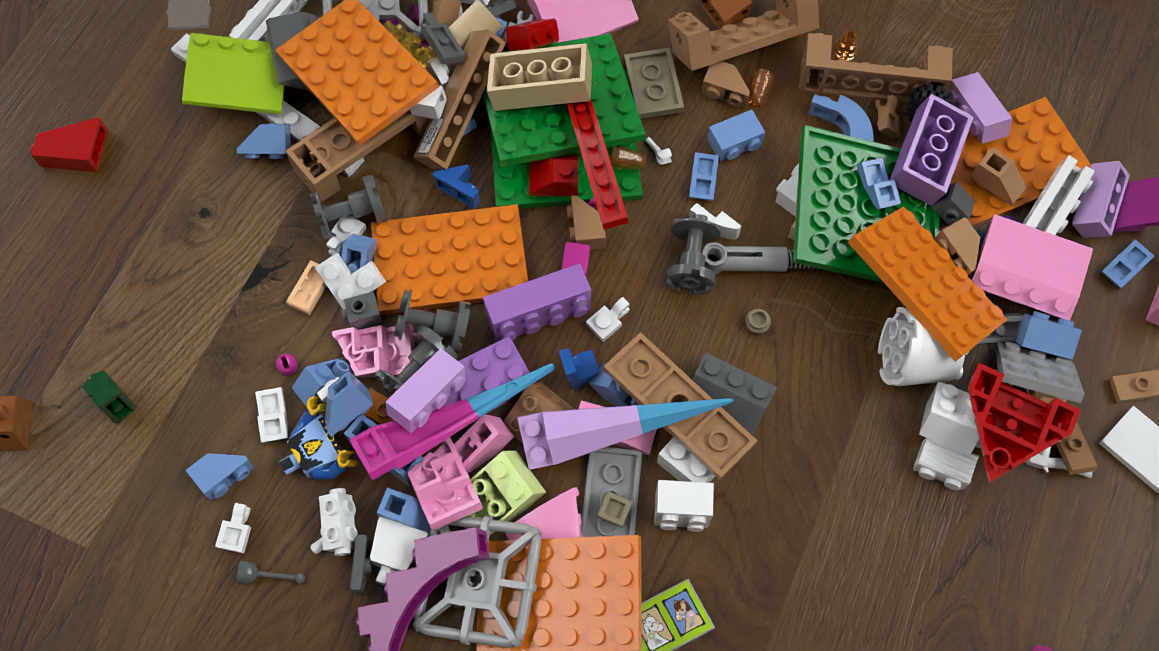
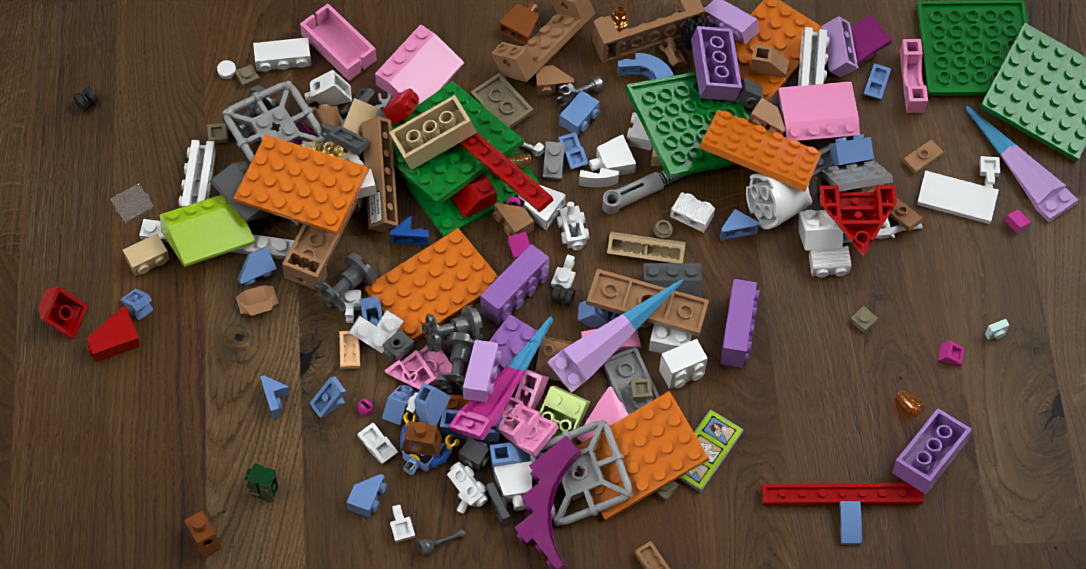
camera: 30 degrees left, 5 degrees down
(35, 94) = (62, 311): none -> red slope
(119, 123) = (138, 303): none -> medium blue slope
(160, 73) = (146, 255): none -> tan brick
(191, 295) = (274, 391): none -> medium blue slope
(247, 181) = (257, 300): none -> medium nougat slope
(250, 332) = (328, 397): none -> medium blue slope
(308, 437) = (422, 439): none -> dark orange torso
(369, 491) = (474, 454): none -> dark grey brick
(579, 367) = (566, 313): blue slope -> none
(588, 340) = (563, 295): none -> pearl dark grey wheel
(640, 229) = (547, 215): none -> white torso
(651, 259) = (572, 222): none -> white brick
(674, 177) = (553, 160): none -> light grey plate
(691, 270) = (603, 217): dark grey piece -> none
(724, 334) = (646, 247): none -> tan brick
(747, 206) = (614, 156): none -> white torso
(760, 87) = (576, 71): clear orange cone -> none
(774, 110) = (570, 92): none -> flat silver bar
(779, 490) = (739, 323): none -> medium lavender brick
(805, 317) = (692, 212): none -> white brick
(852, 361) = (738, 226): none -> medium blue slope
(877, 185) = (693, 102): medium blue slope -> none
(950, 560) = (864, 319): none -> dark tan plate

